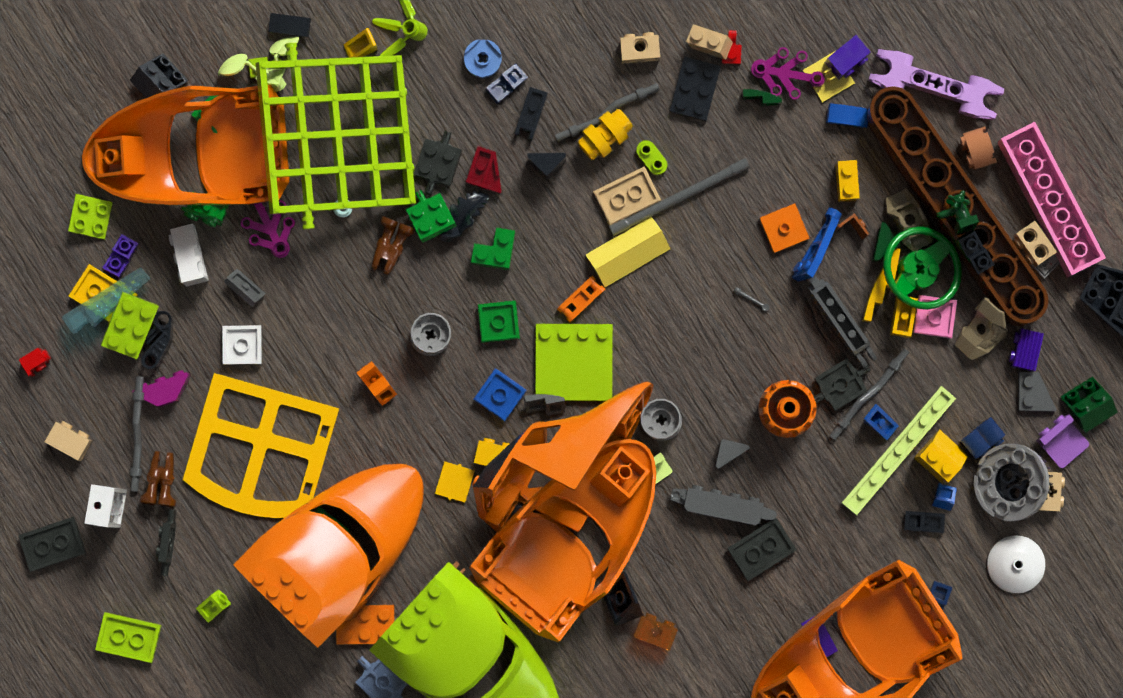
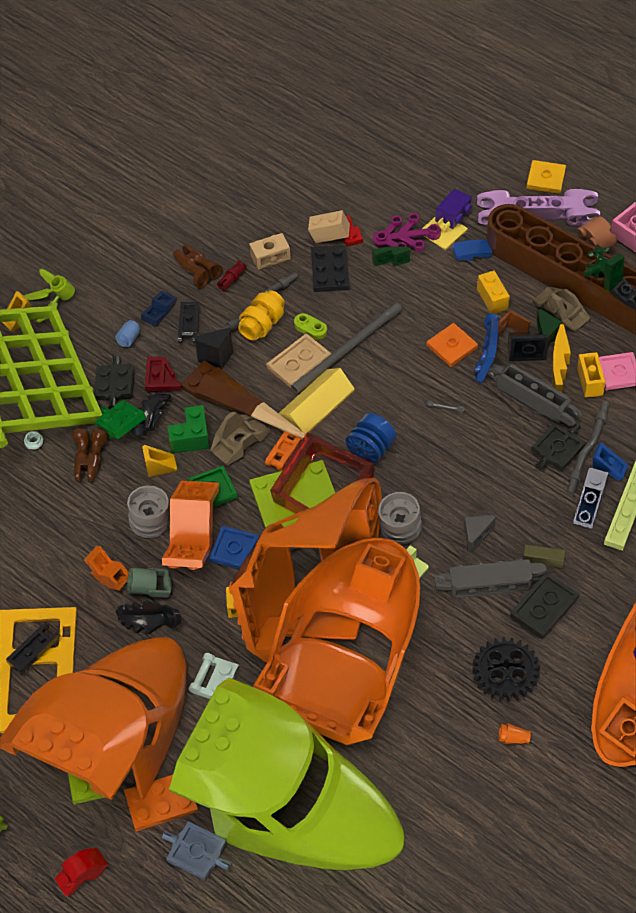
camera: 15 degrees left, 30 degrees down
(282, 669) = (79, 868): none -> red brick
(288, 443) = (32, 649): none -> black hinge
(402, 444) = (148, 616): none -> black plant
(407, 408) = (144, 582): none -> sand green piece
(449, 525) = (222, 671): none -> light aqua plate
(454, 482) = (214, 639): yellow piece -> none
(457, 275) = (158, 461): none -> yellow slope
(465, 365) = (191, 524): none -> orange bracket
(466, 108) = (127, 333): none -> medium blue brick
(482, 69) = (133, 303): medium blue plate -> none
(525, 276) = (224, 444): none -> dark tan piece
(536, 204) = (219, 388): none -> reddish brown plate
(552, 39) = (191, 261): none -> reddish brown piece
(581, 332) = (298, 463): none -> clear red windscreen
(591, 66) = (231, 275): none -> dark red pin
(622, 601) = (424, 686): black slope -> none
(663, 322) = (371, 437): none -> blue wheel
(663, 640) = (460, 716): clear orange brick -> none
(684, 664) = (513, 735): none -> orange cone
(698, 618) = (504, 652): none -> black gear
(773, 413) = (517, 469): orange wheel -> none
(781, 496) = (547, 556): none -> olive slope
(848, 451) = (591, 498): none -> slope
(854, 258) = (527, 346): none -> black slope
(927, 264) = (589, 334): green piece -> none
(962, 41) = (546, 176): none -> yellow plate

